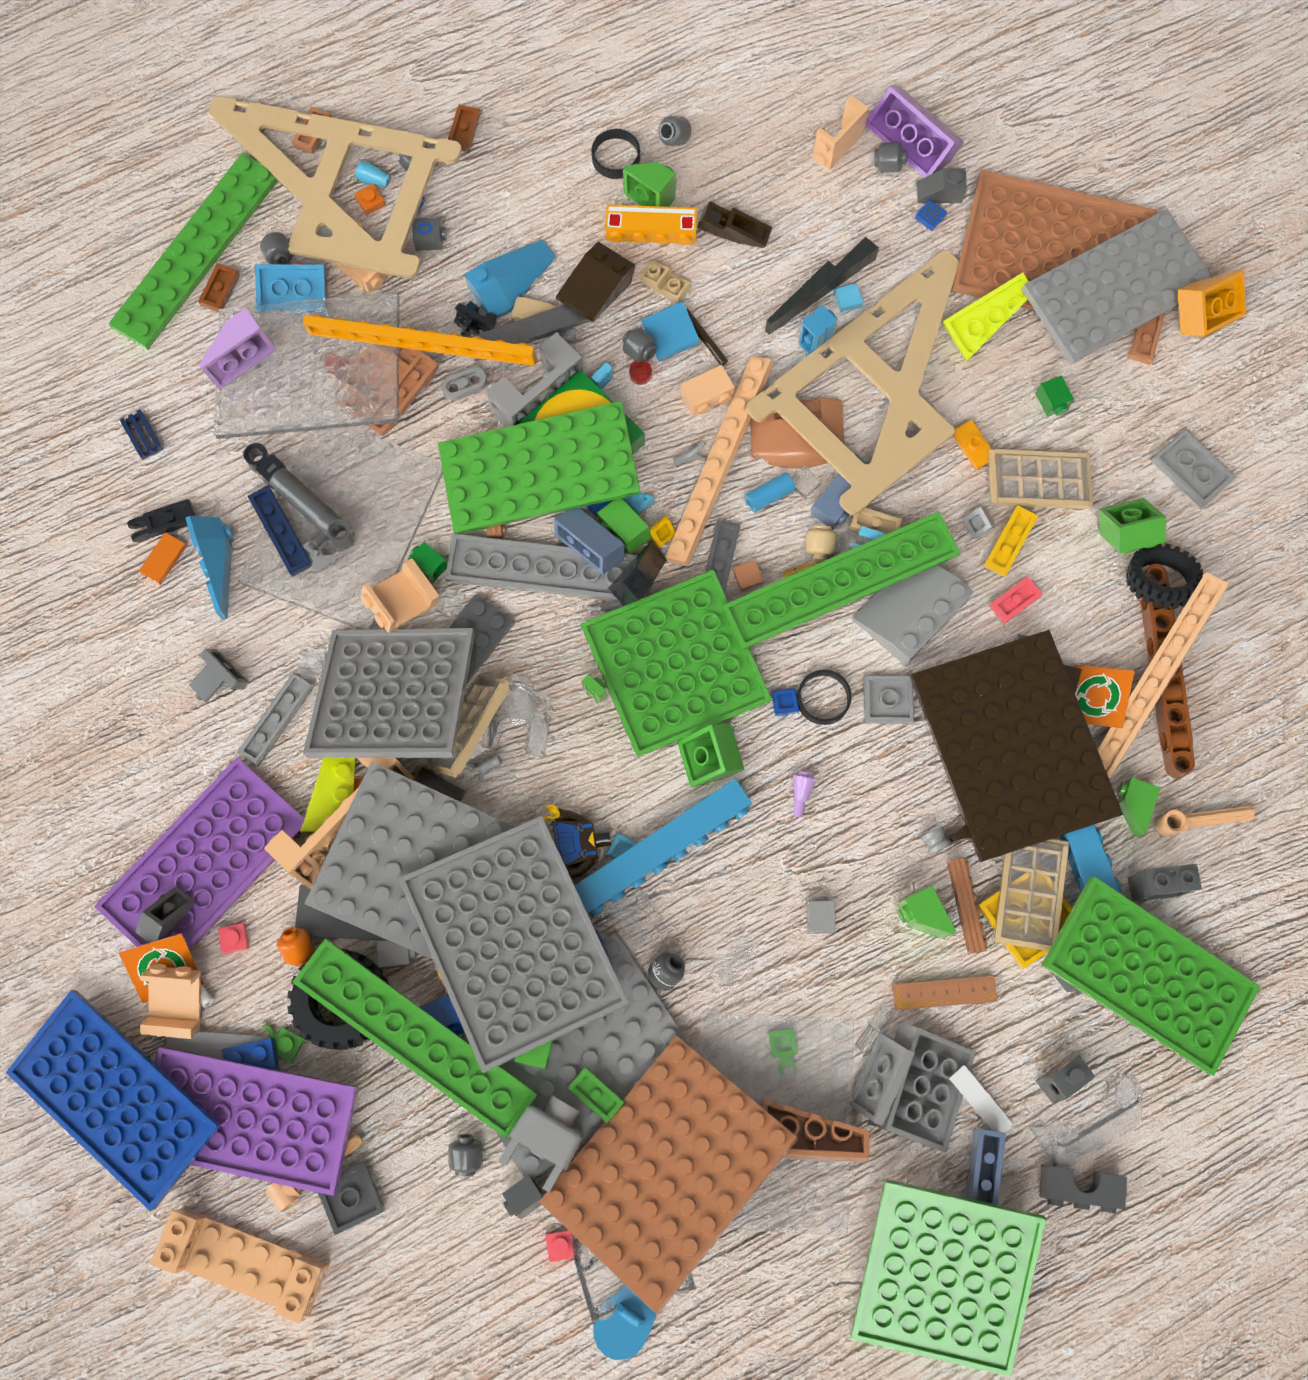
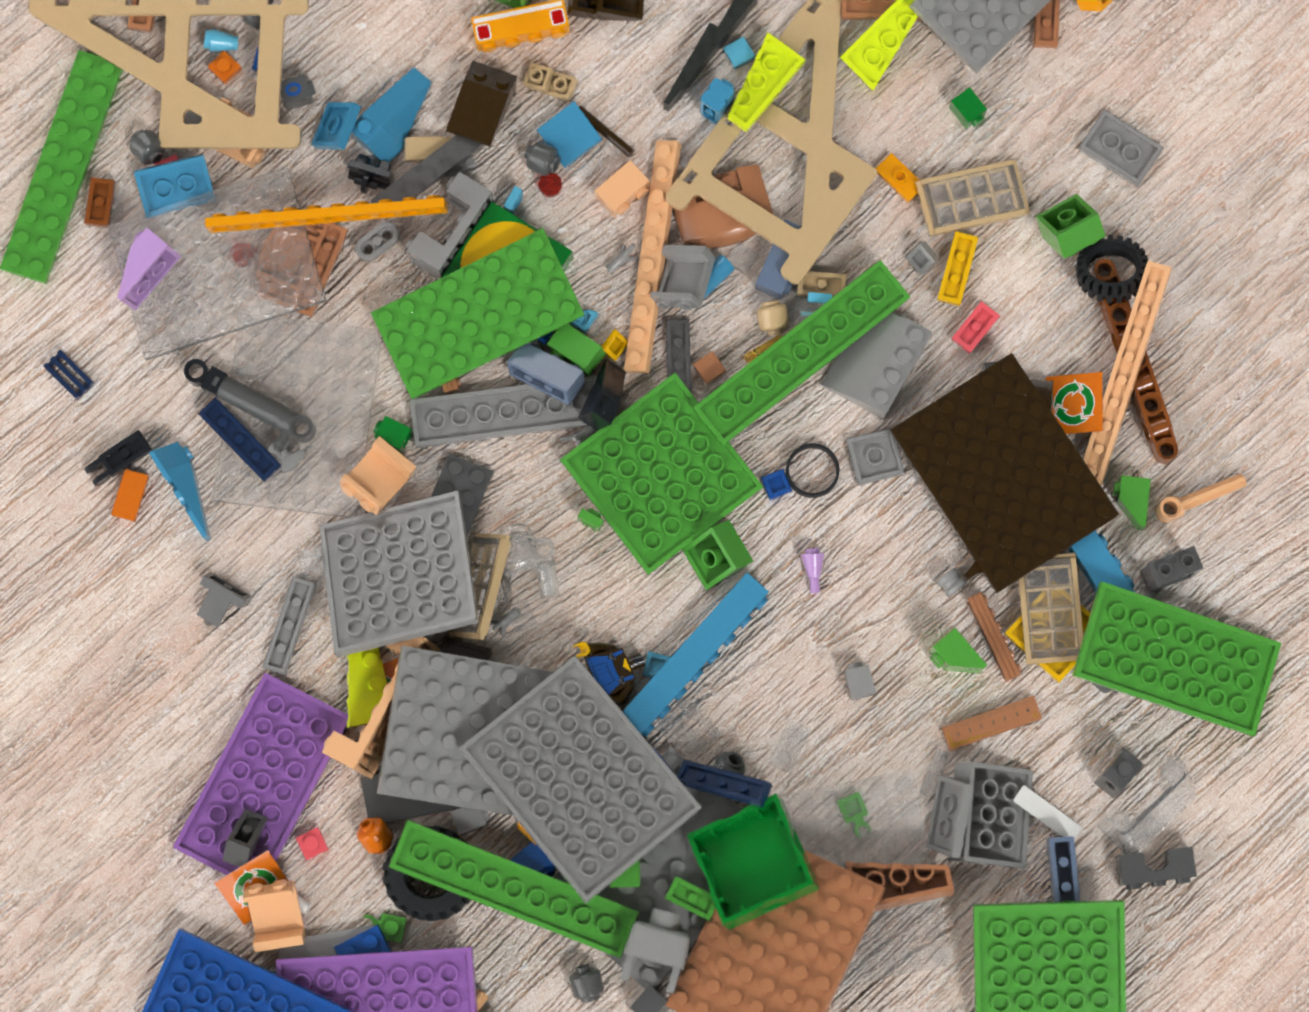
camera: 10 degrees left, 5 degrees up
(455, 270) = (336, 126): none -> dark azure tile
(658, 984) = (724, 783): none -> dark blue tile
(667, 1074) = (753, 862): none -> green tile
(746, 482) = (684, 277): none -> light grey panel
(868, 323) = (769, 75): none -> neon yellow wing

